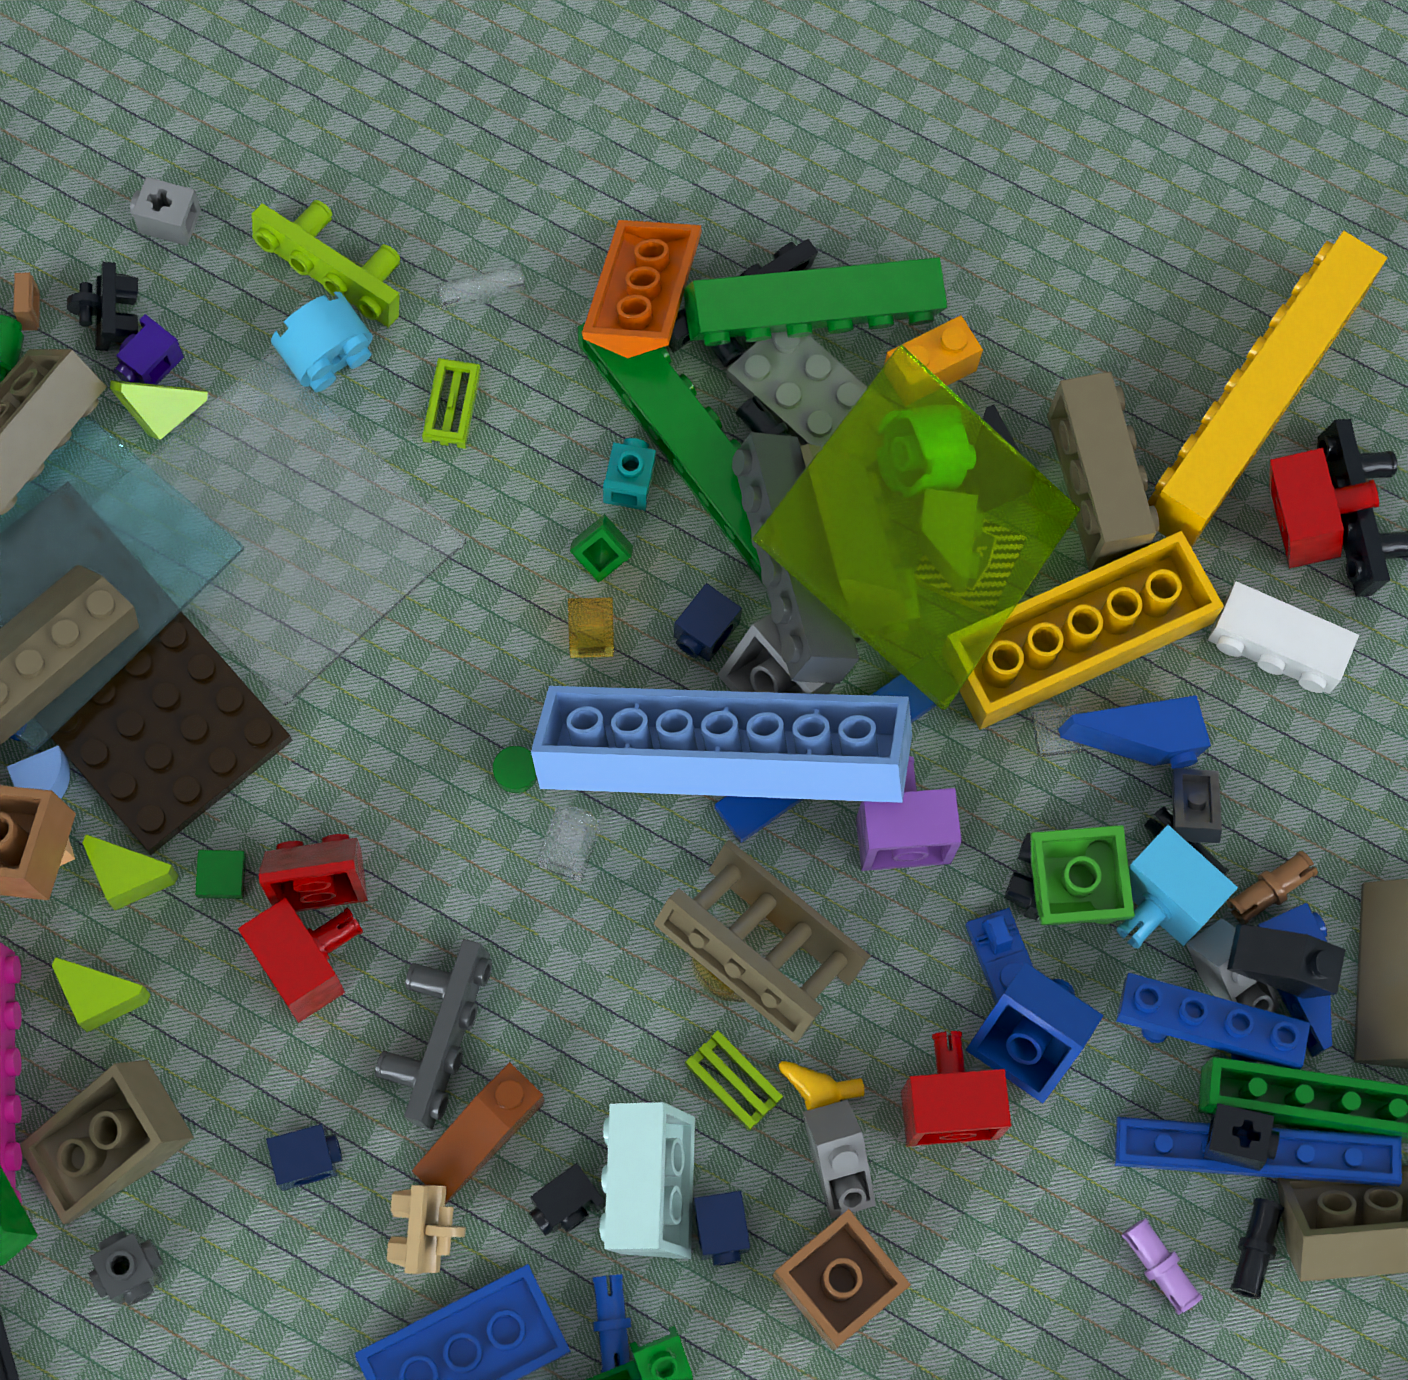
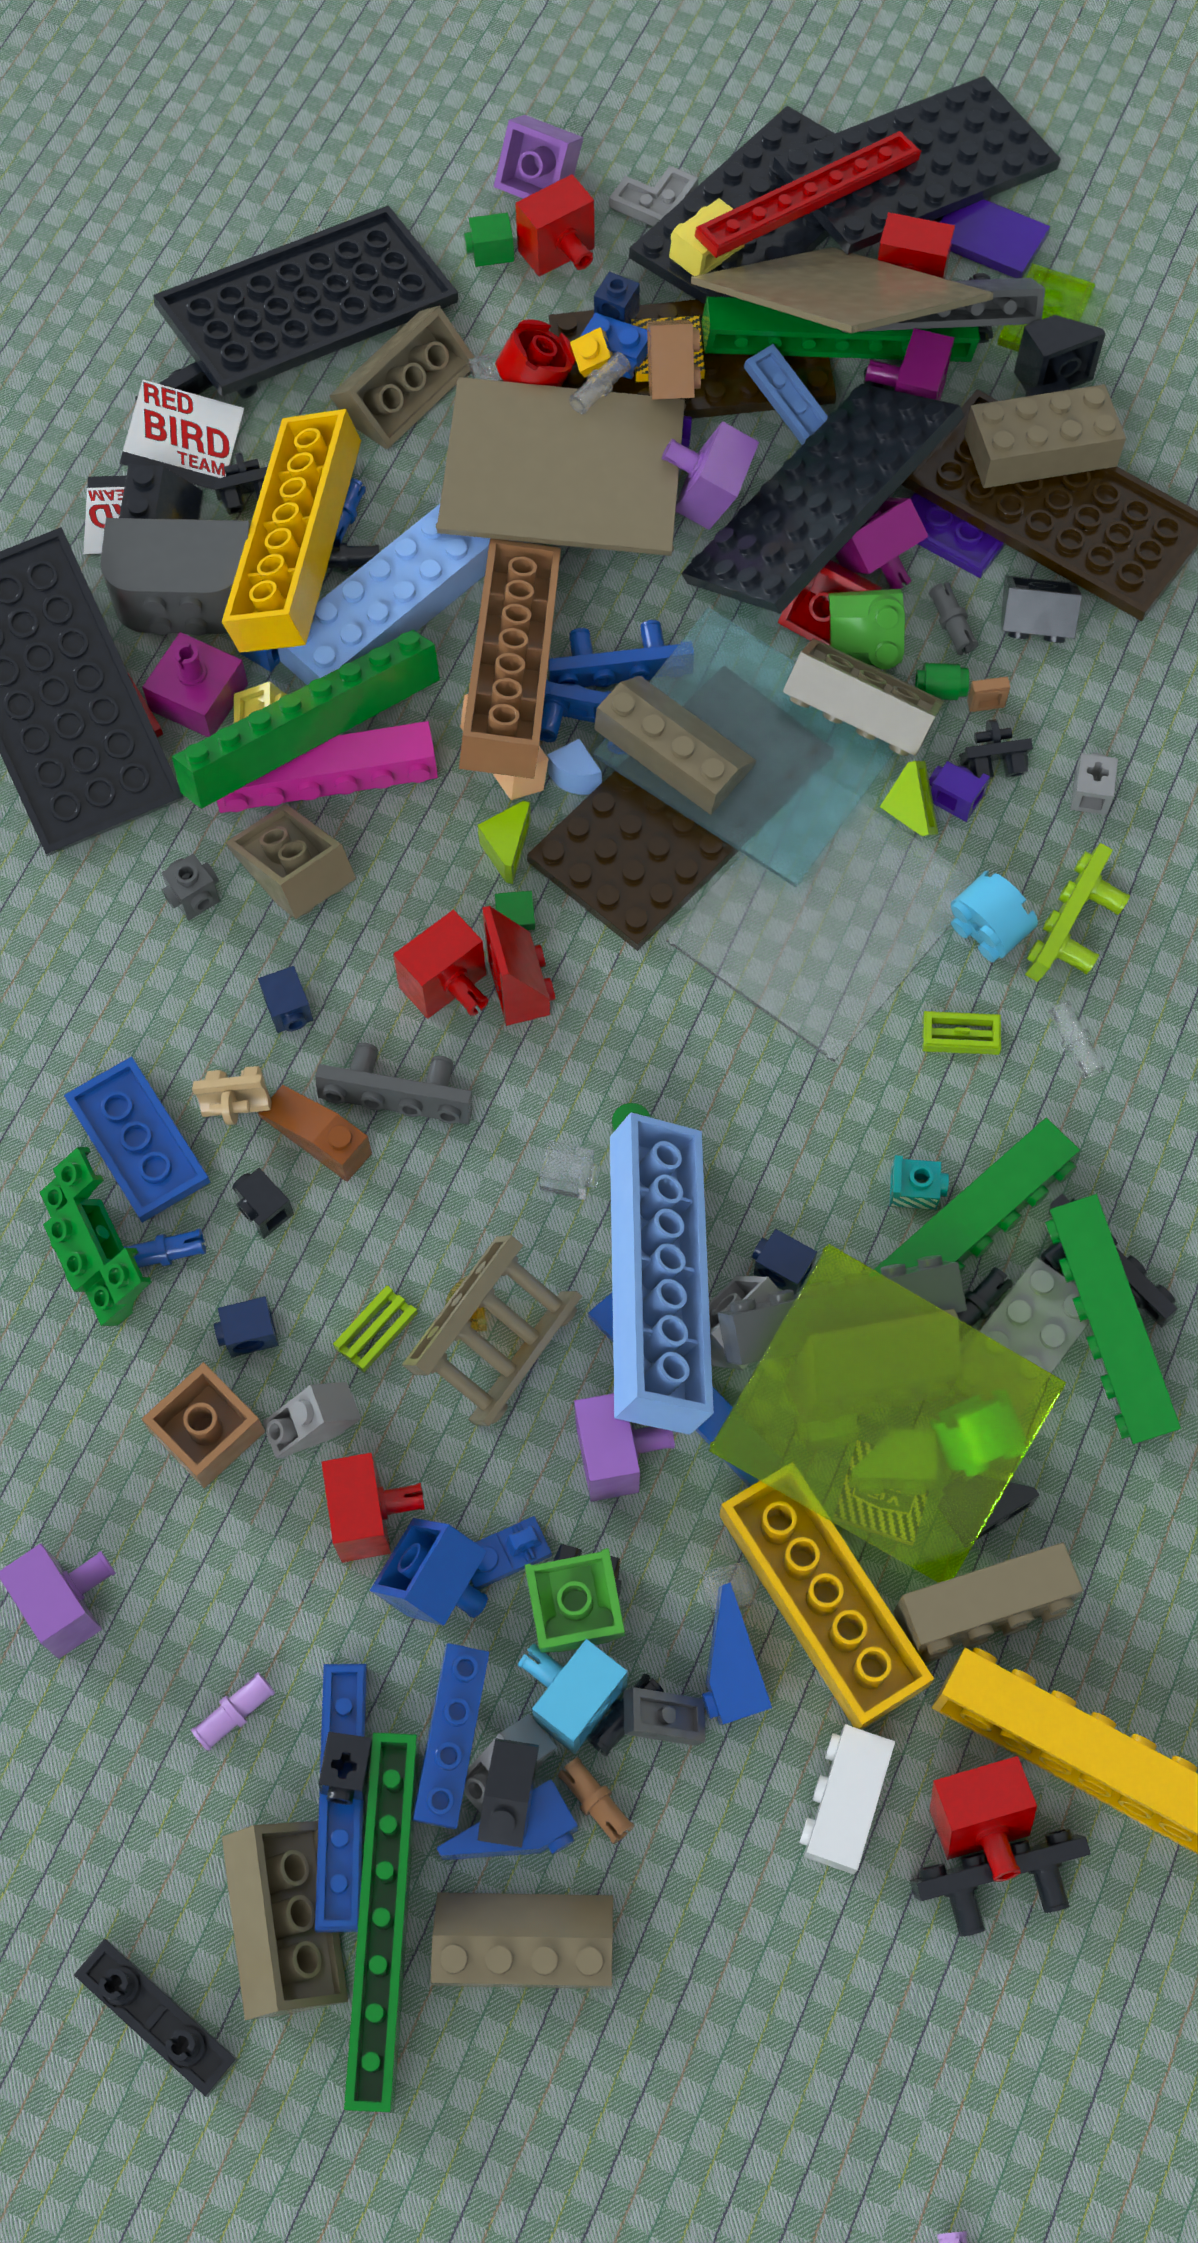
camera: 90 degrees right, 5 degrees down
(97, 995) = (404, 833): lime slope -> none
(590, 627) = (765, 1166): clear yellow brick -> none
(601, 548) = (843, 1169): green slope -> none
(641, 286) = (1096, 1162): orange slope -> none
(648, 1180) = (279, 1258): light aqua slope -> none
(819, 1088) = (372, 1400): yellow animal -> none
(946, 350) = (1080, 1440): light orange brick -> none
(1257, 1248) = (253, 1799): black pin -> none

